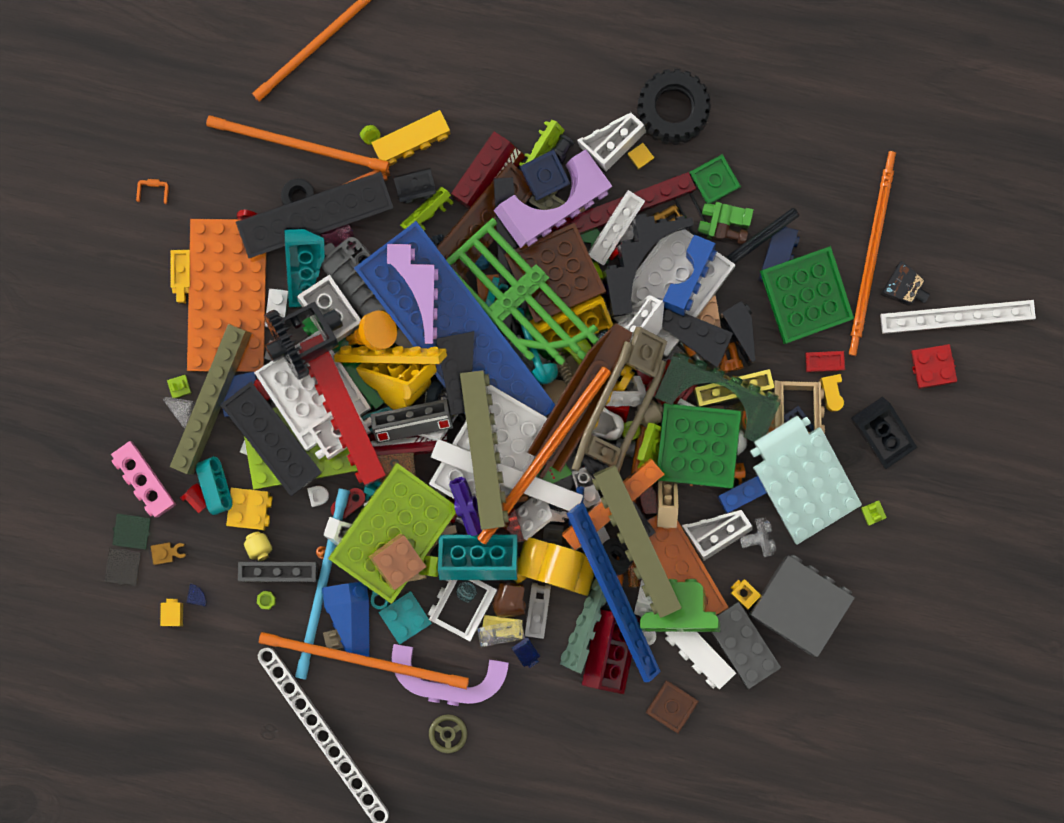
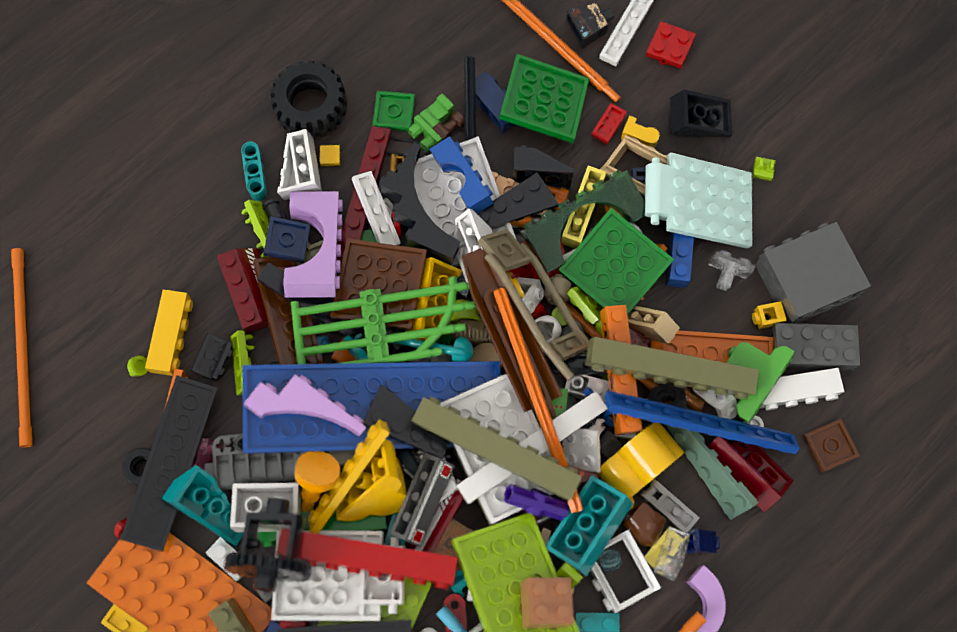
camera: 60 degrees left, 10 degrees down
(152, 183) = (27, 596): orange piece -> none
(372, 163) = (27, 491): orange piece -> none
(589, 99) = (251, 163): none -> teal beam
(717, 533) = (700, 305): white wedge -> none

